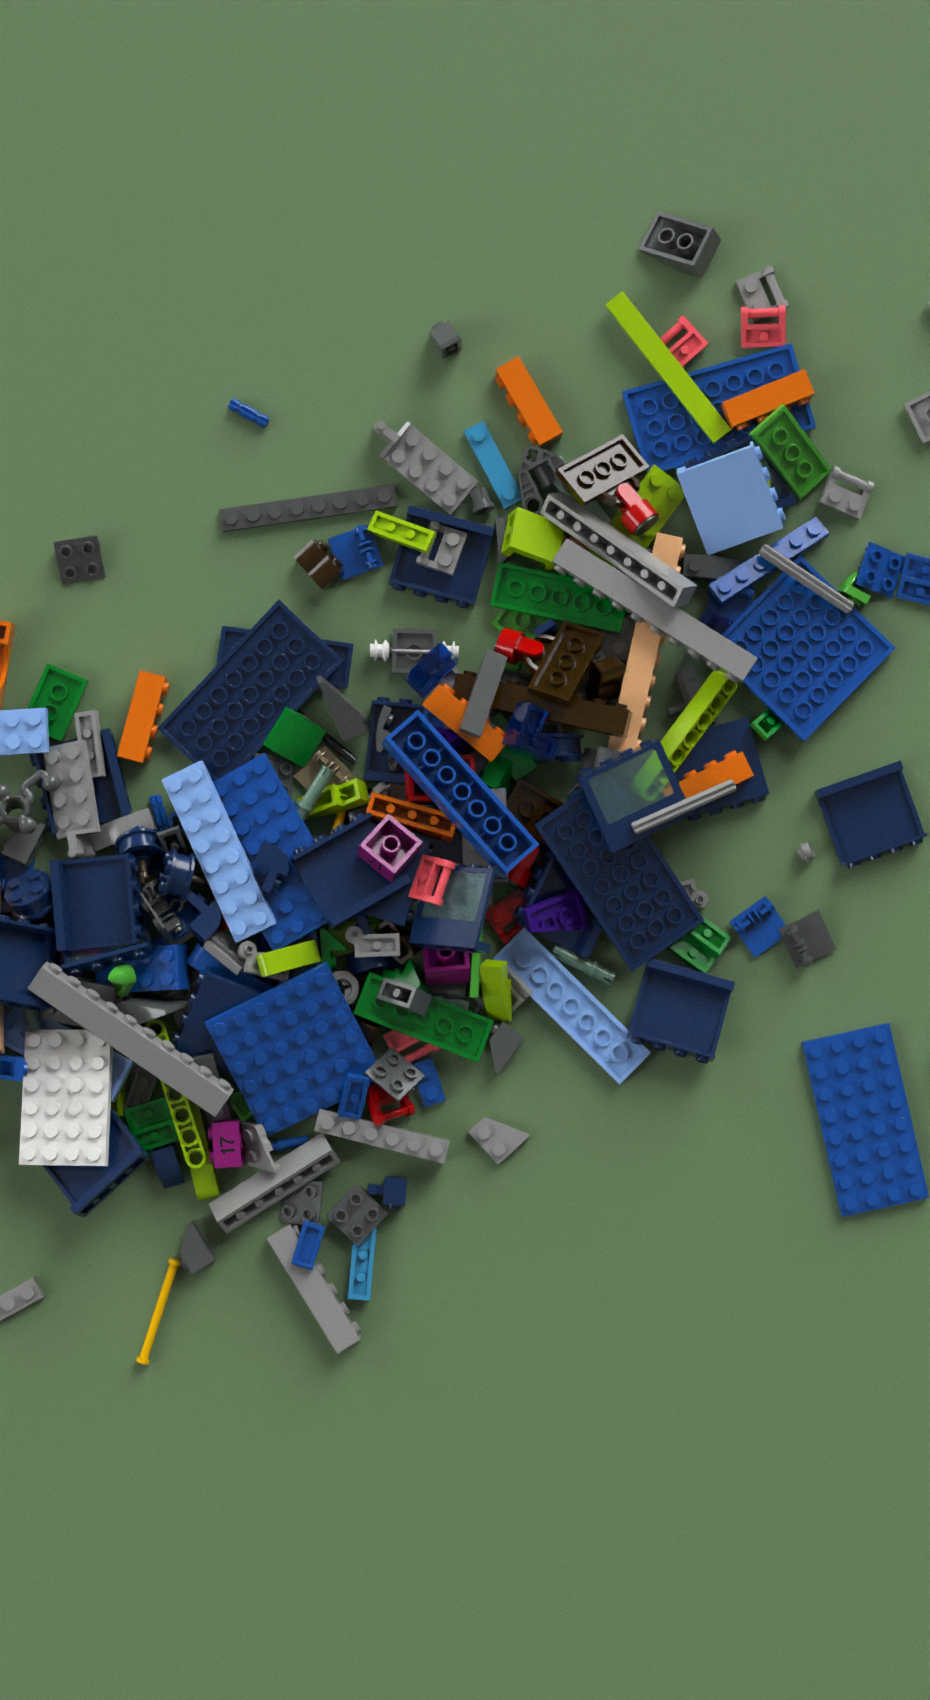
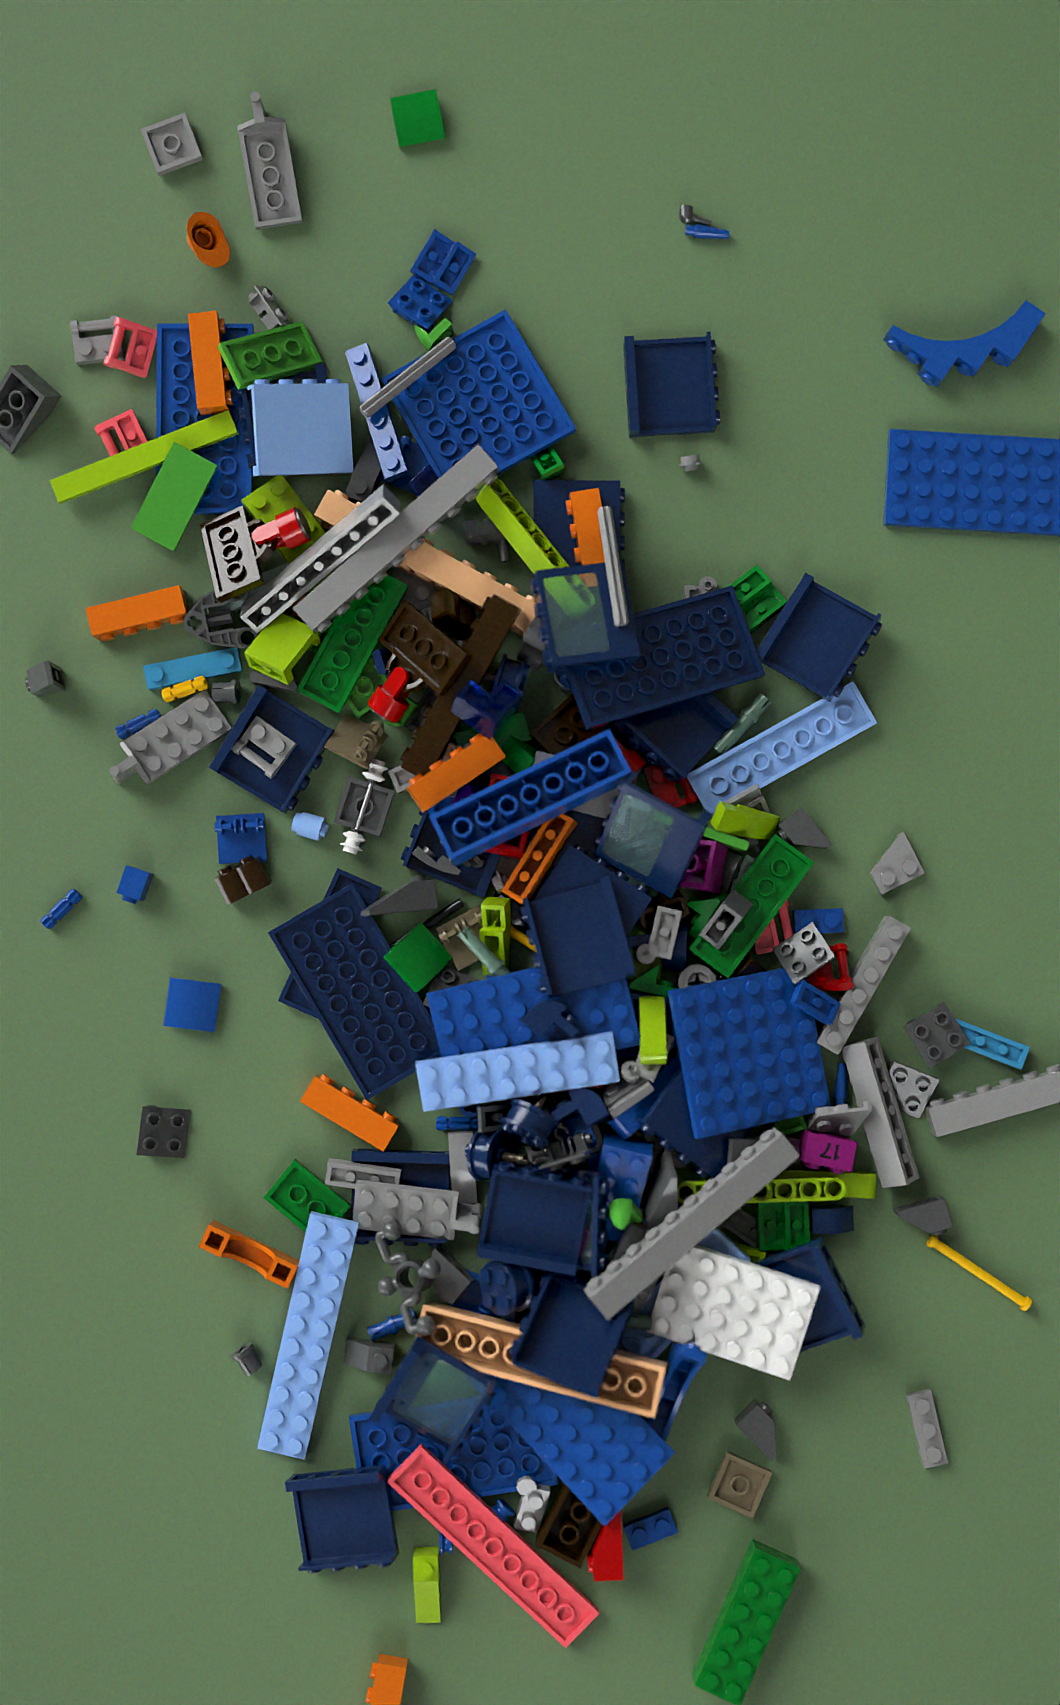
camera: 80 degrees left, 0 degrees up
(197, 551) = (192, 1004): none -> blue slope
(288, 470) = (134, 884): none -> blue brick
(308, 508) = (180, 875): dark grey plate -> none
(308, 1245) = (956, 1095): blue tile -> none
(383, 609) = (310, 826): none -> light blue brick
(389, 848) = (567, 888): magenta brick -> none
(393, 1191) = (921, 989): dark blue brick -> none
(401, 532) = (234, 783): lime plate -> none
(426, 879) = (608, 858): coral plate -> none
(430, 431) = (137, 724): none -> blue axle
(431, 669) = (388, 793): clear blue panel -> none
(470, 628) = (357, 740): none -> dark tan hinge
(473, 463) = (184, 688): none -> yellow axle
(483, 693) = (431, 744): dark grey tile -> none
(556, 913) = (683, 735): dark purple wing -> none
(639, 404) = (174, 496): none -> bright green tile
(758, 926) = (753, 532): blue hinge -> none
(807, 939) = (781, 487): dark grey hinge -> none
(841, 431) = (263, 301): none -> light grey hinge
(843, 499) = (335, 319): light grey plate -> none
(878, 366) = (207, 239): none -> orange piece

